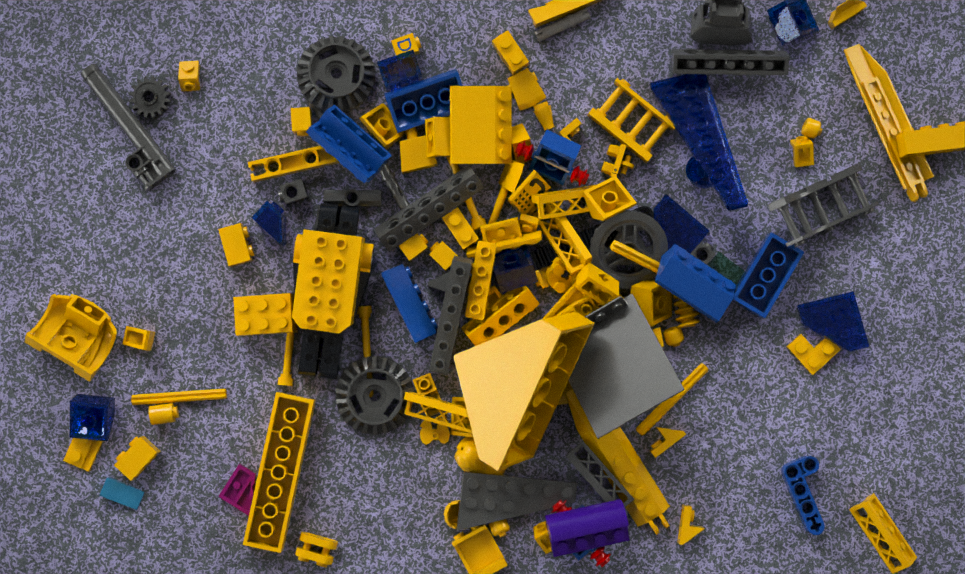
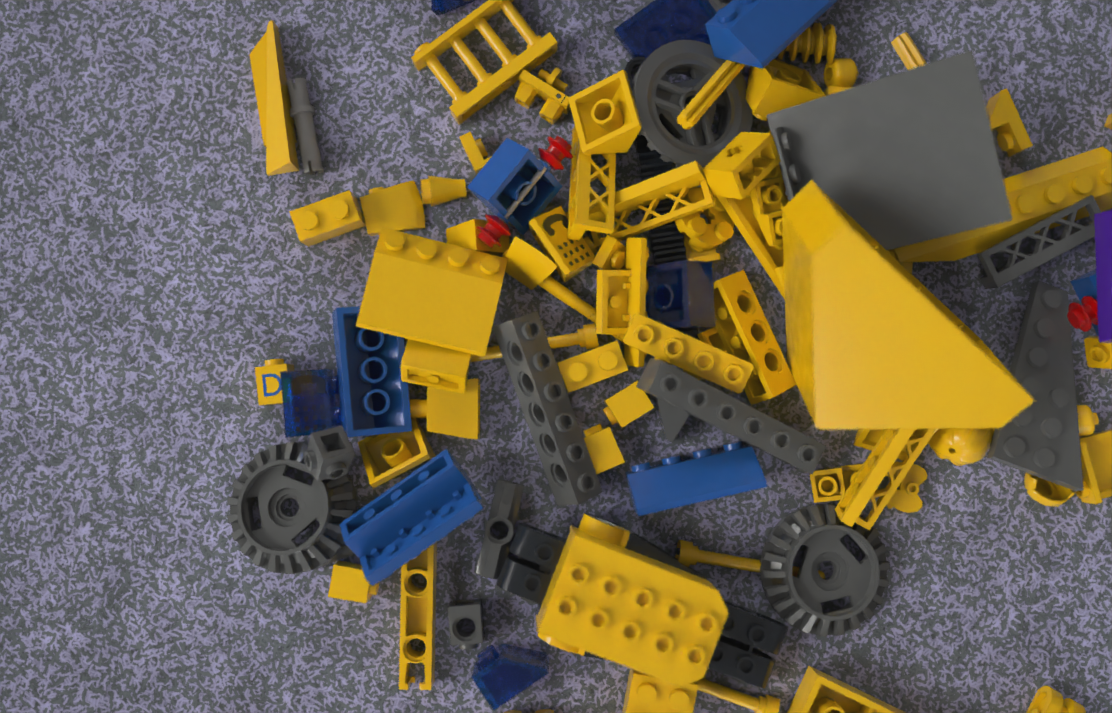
camera: 80 degrees left, 0 degrees up
(373, 88) = (329, 454): none -> dark grey brick
(393, 186) = (498, 457): dark grey pin -> none

